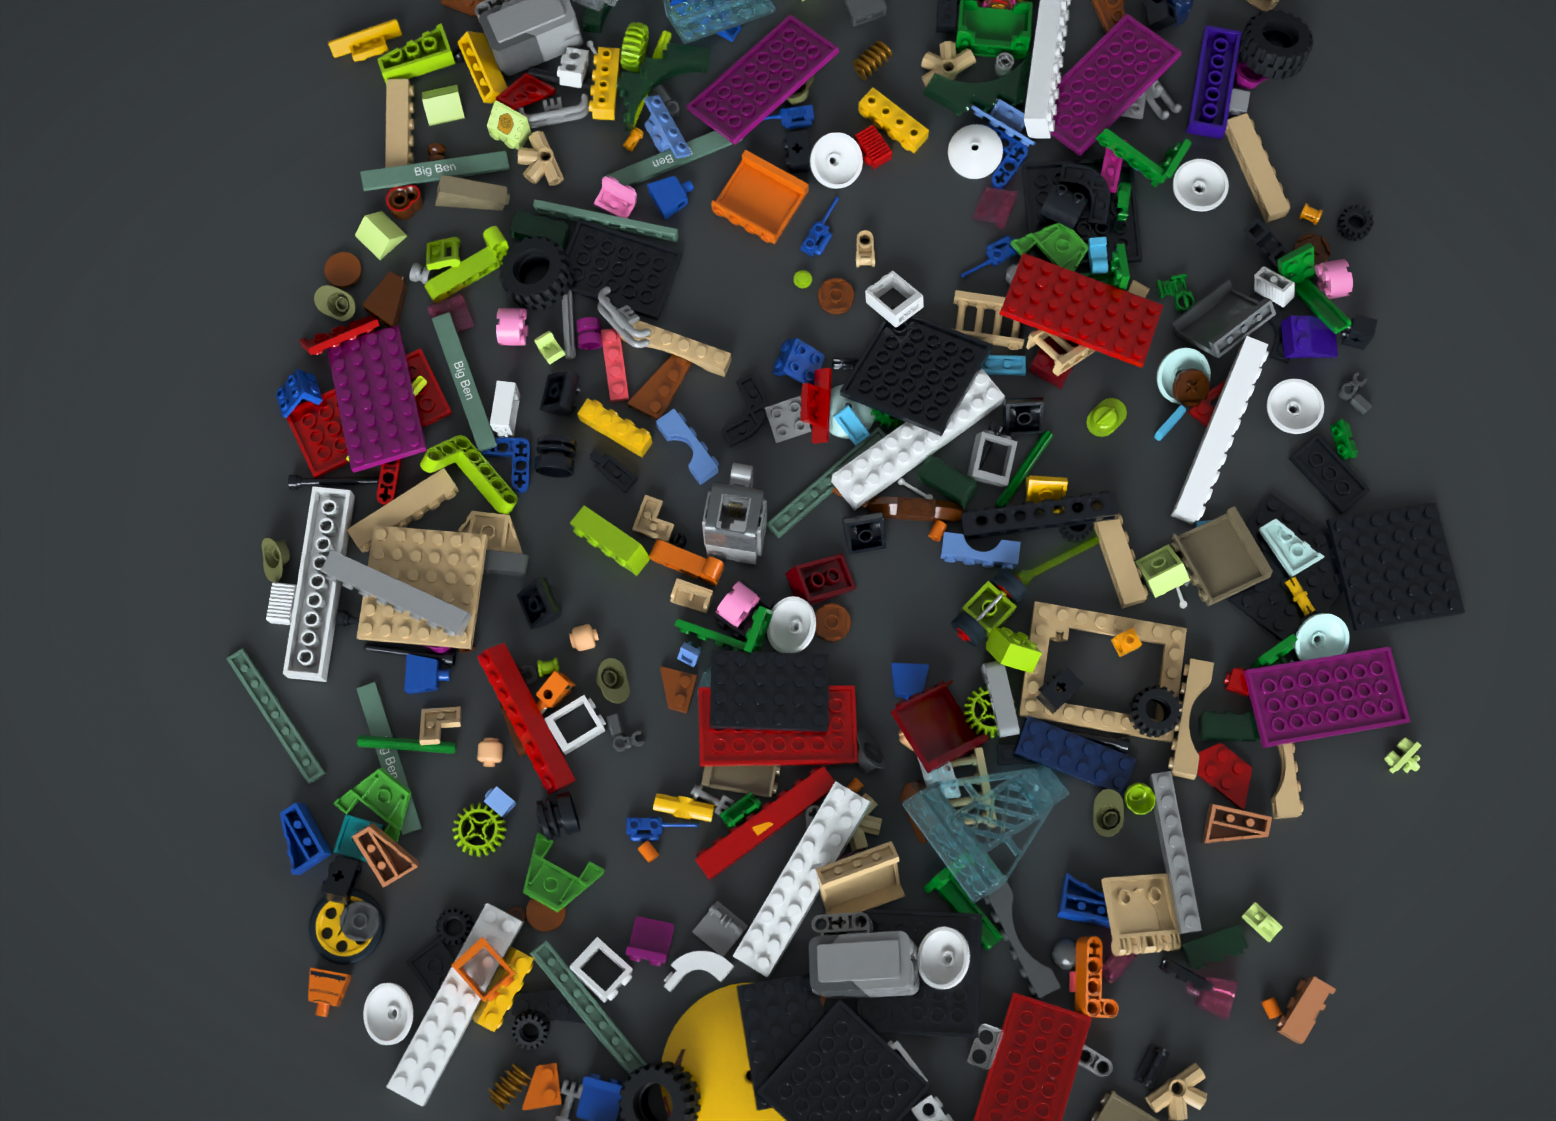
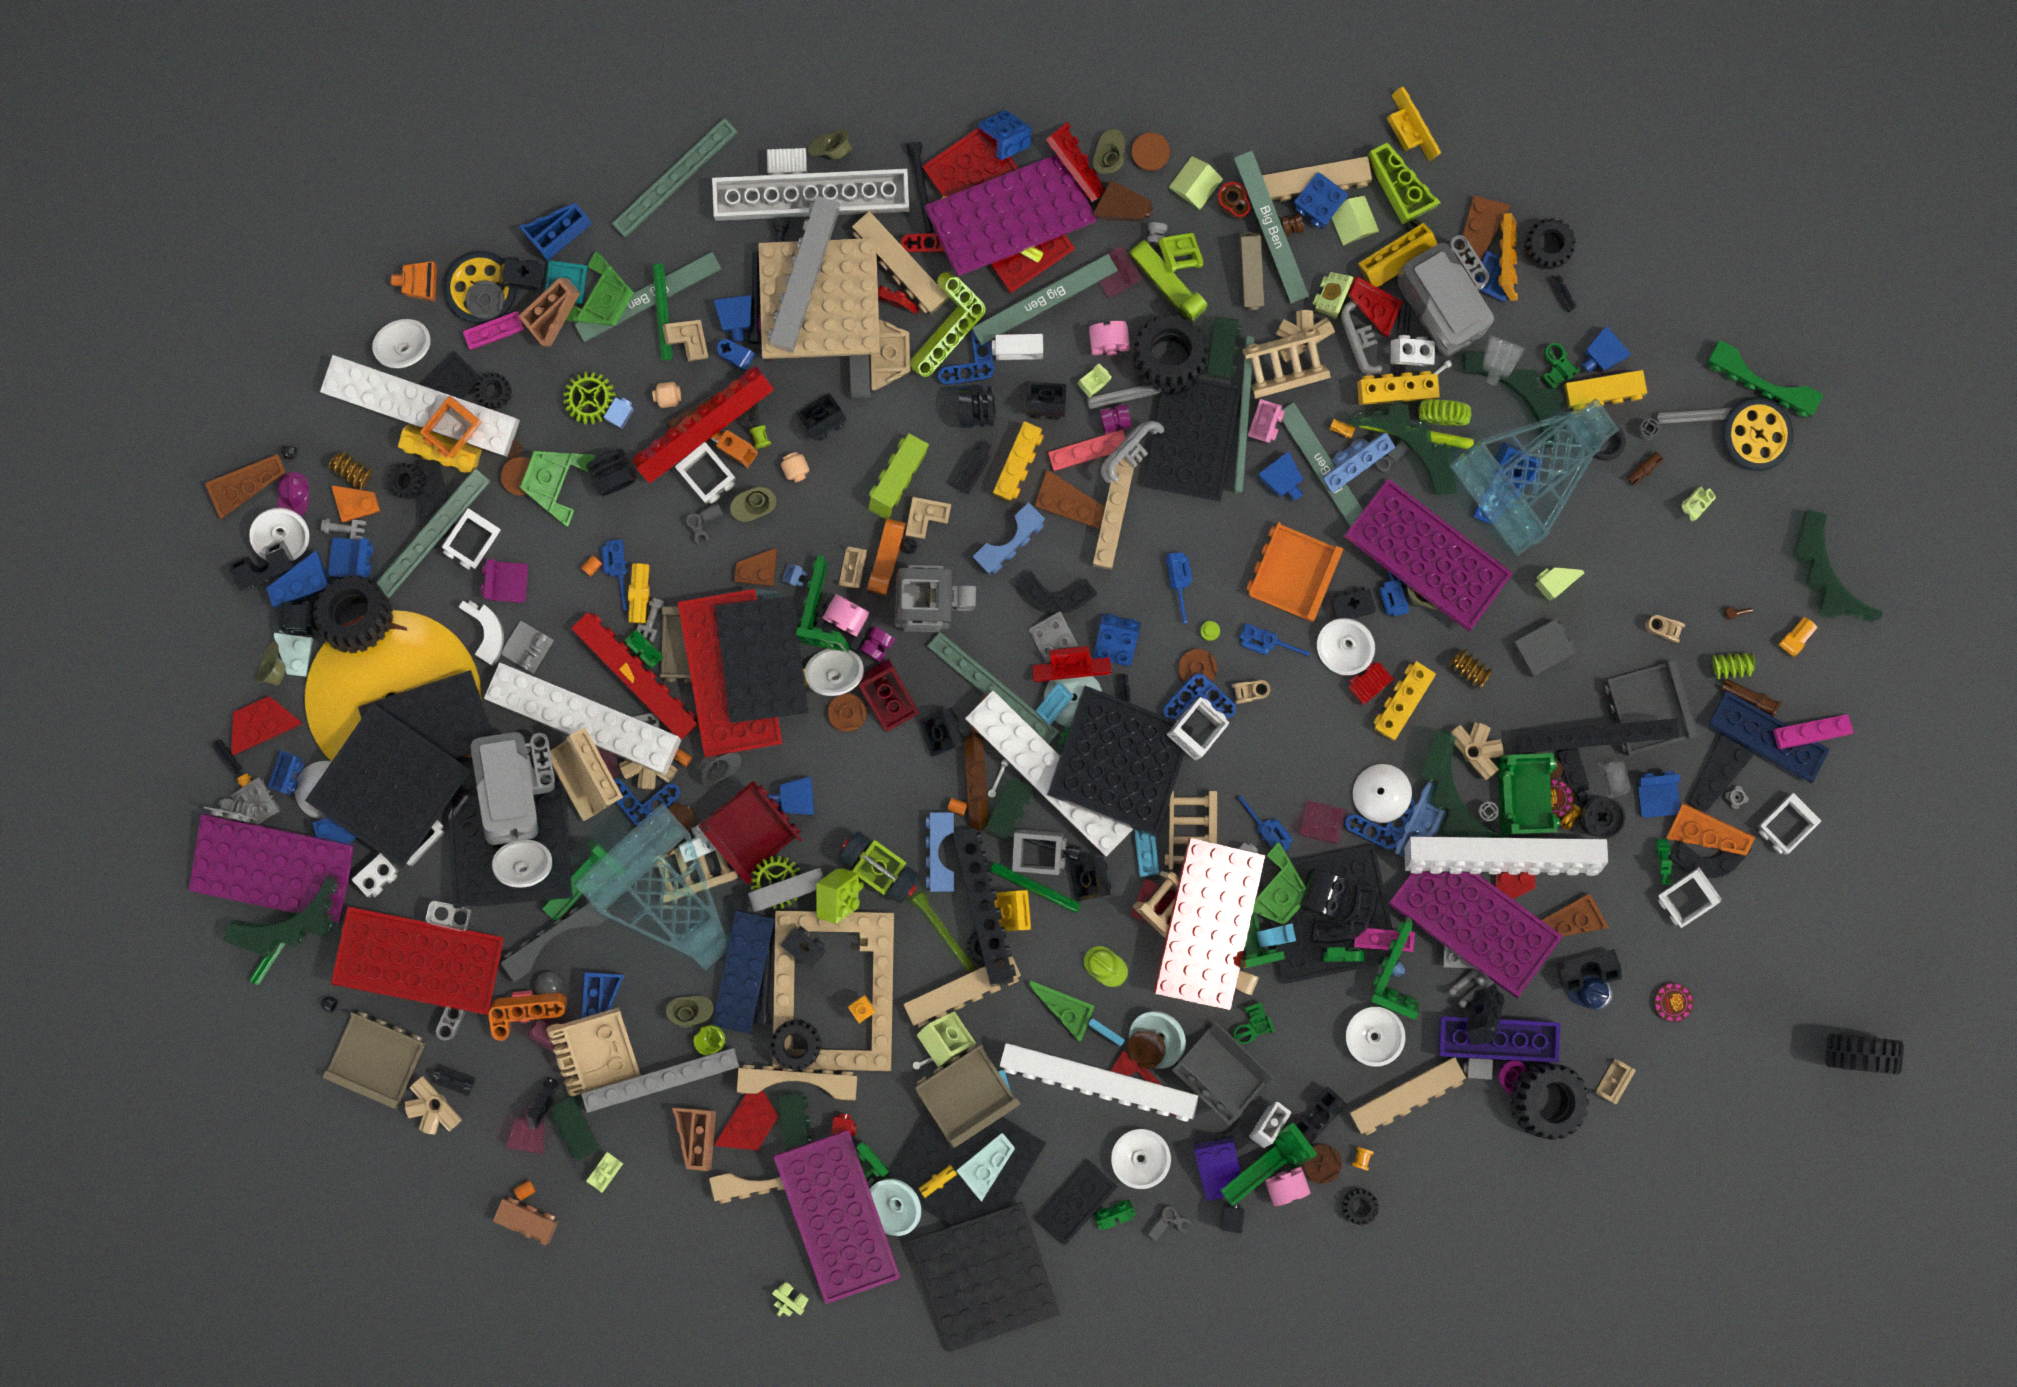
camera: 80 degrees right, 10 degrees up
(393, 917) = (493, 330): none -> dark pink plate
(420, 126) = (1320, 200): none -> blue bracket
(437, 515) = (896, 299): none -> red wing
(463, 678) = (738, 355): none -> blue piece
(579, 168) = (1299, 376): none -> tan fence
(747, 298) = (1179, 576): none -> blue piece
(770, 582) = (877, 644): none -> magenta wheel
(858, 292) = (1203, 691): none -> blue beam
(898, 830) = (646, 807): none -> blue beam
(1073, 52) = (1514, 884): none -> red wing
(1146, 453) = (1071, 1011): none -> bright green wing
(1205, 84) = (1488, 1006): none -> black arch

